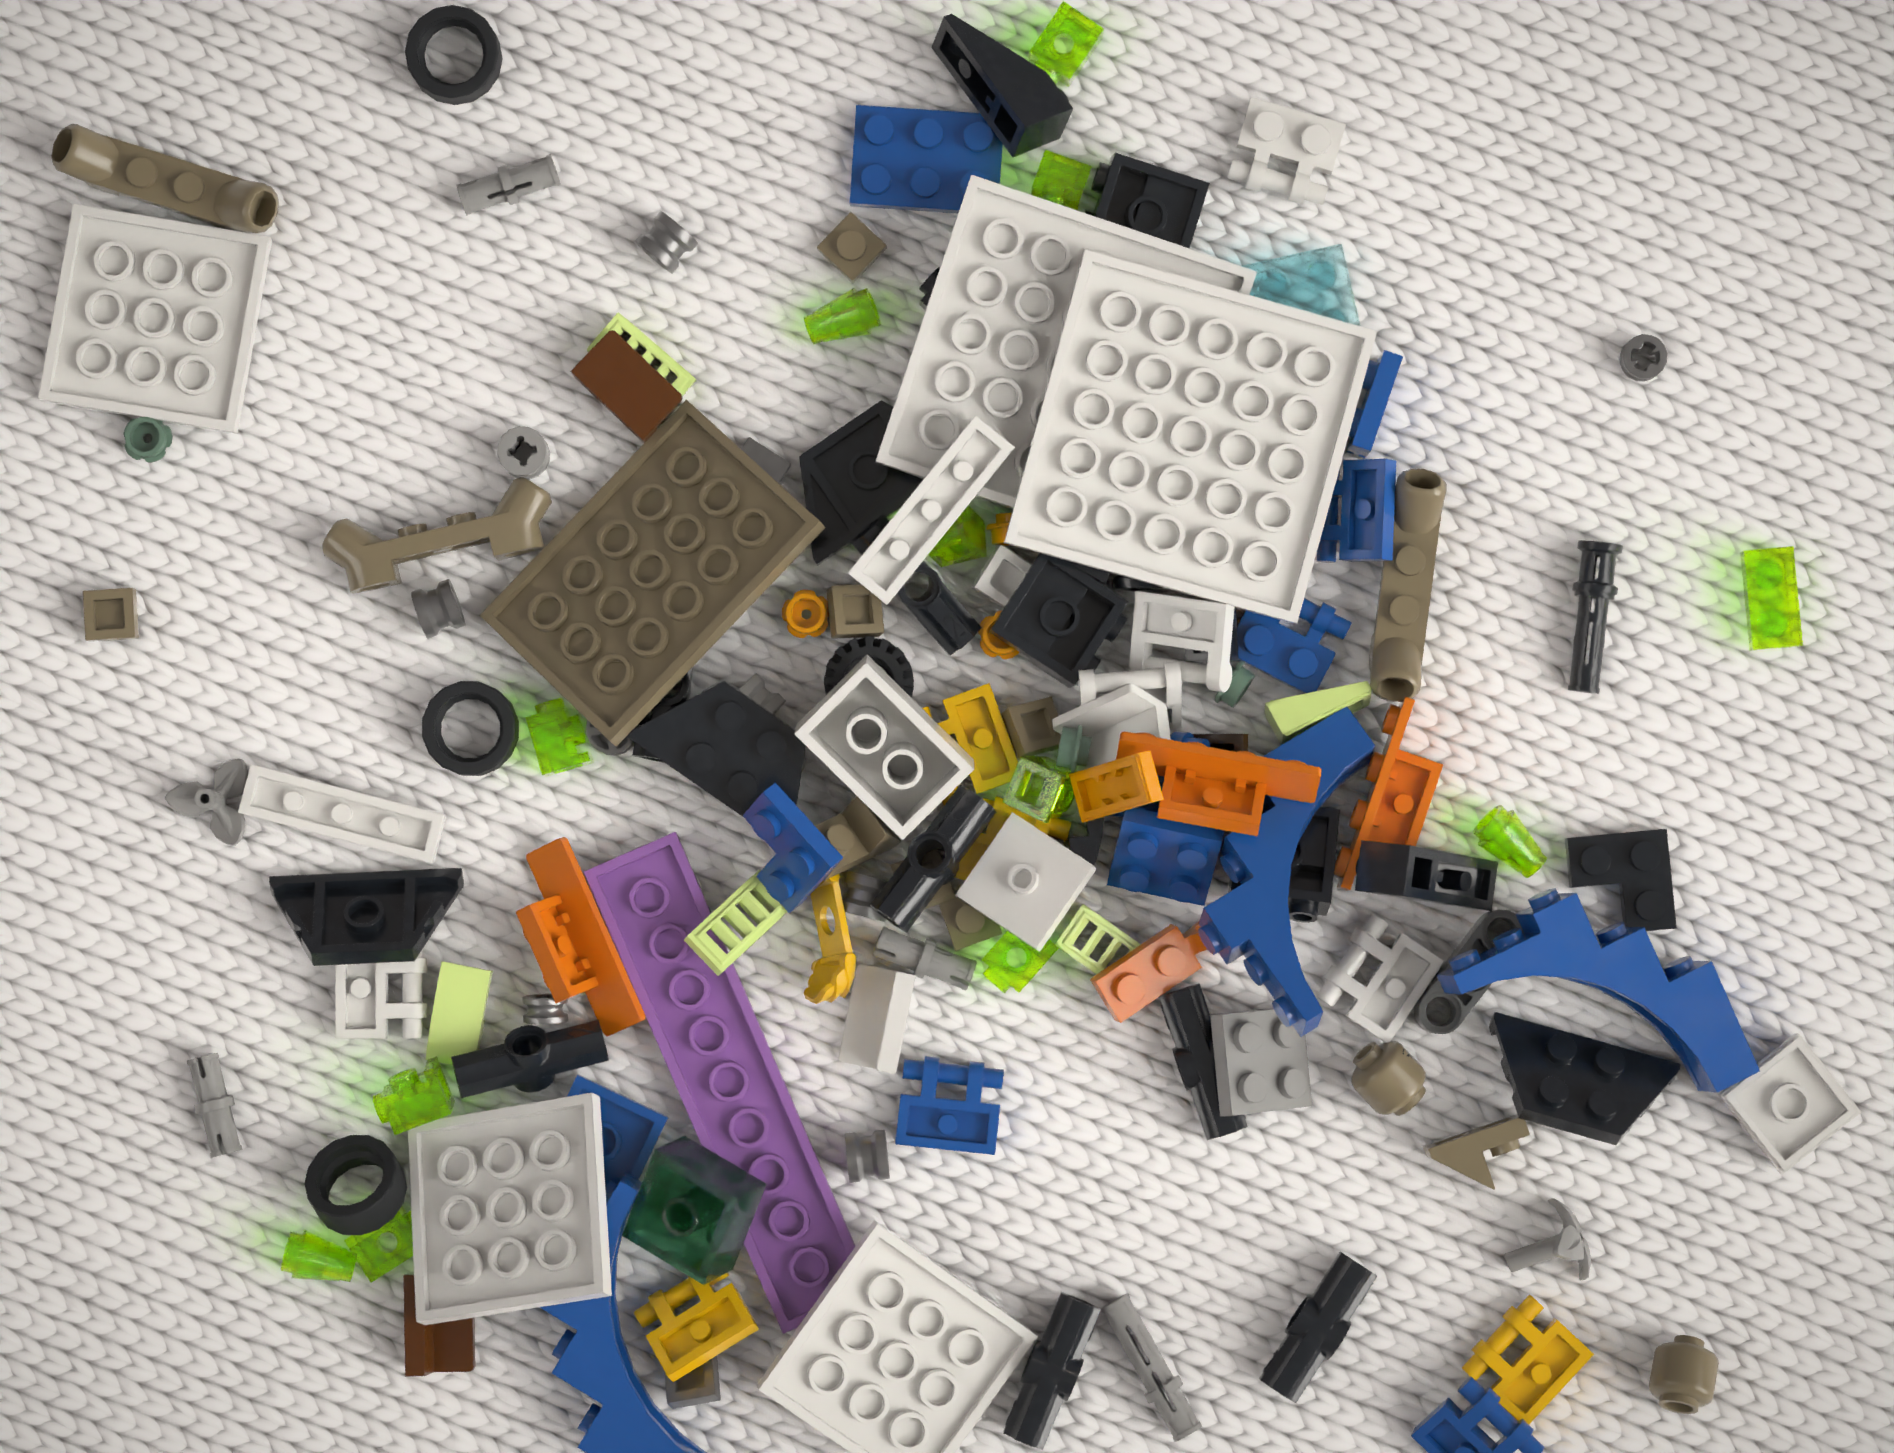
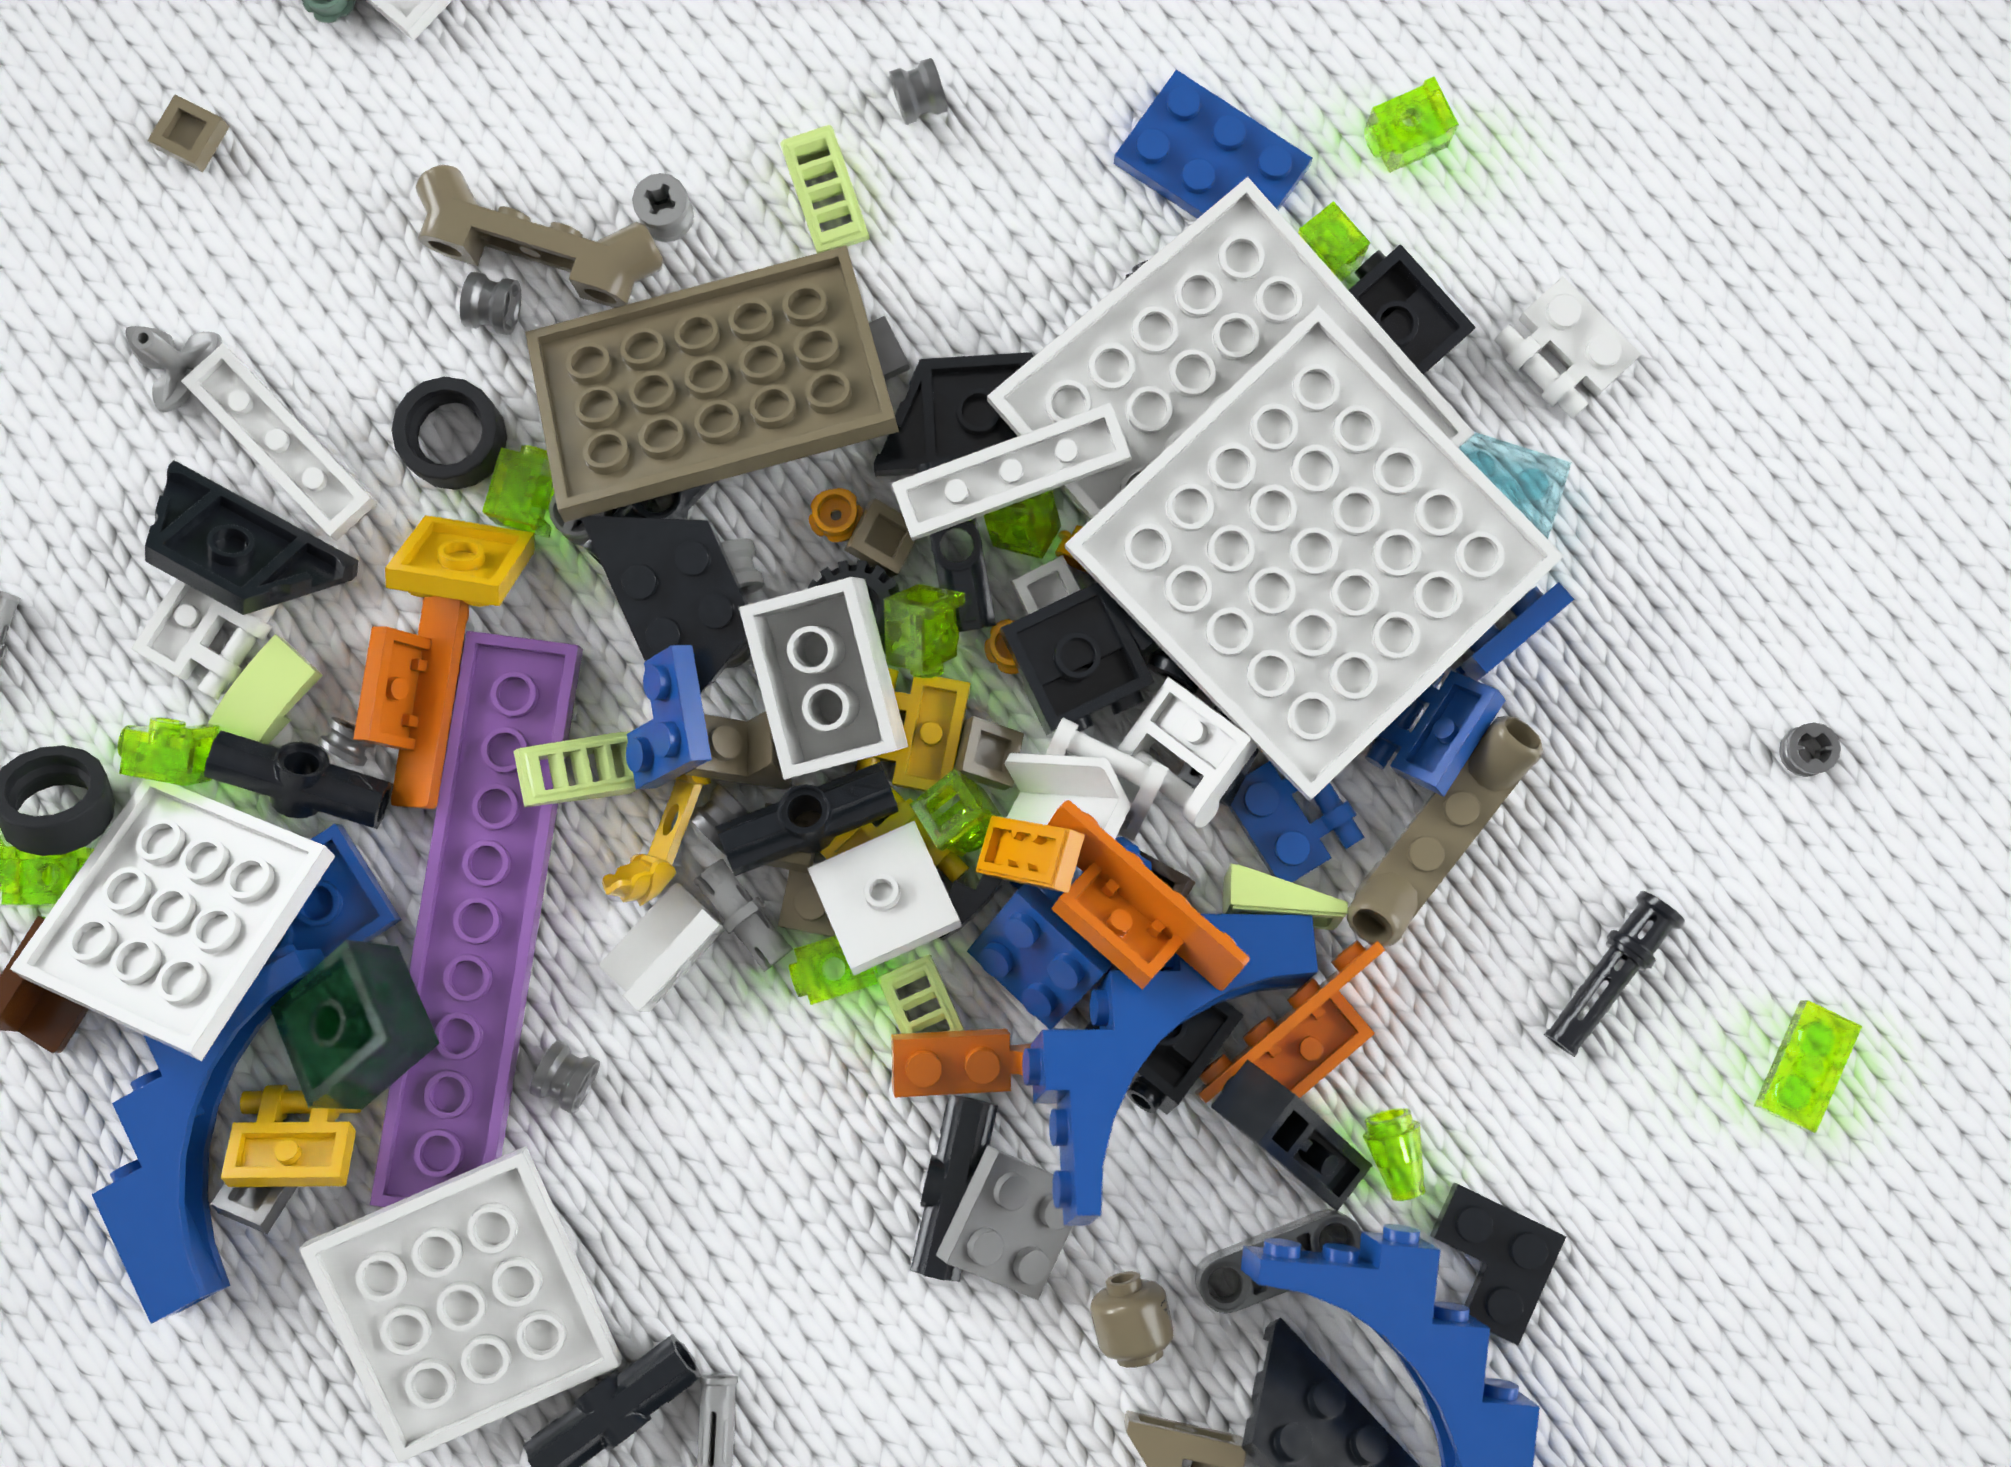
camera: 35 degrees right, 5 degrees down
(548, 821) = (460, 561): none -> yellow plate
(627, 385) = (797, 195): reddish brown panel -> none
(844, 317) = (1044, 257): clear neon green cone -> none
(851, 247) = (1091, 199): dark tan plate -> none
(931, 664) = (922, 629): none -> clear neon green brick
(949, 1122) = (665, 1092): blue plate -> none
(1004, 87) = (1329, 130): black slope -> none
(1073, 748) = (1011, 793): sand green plate -> none
(1239, 684) = (1214, 833): sand green plate -> none
(1393, 987) = (1192, 1228): white plate -> none

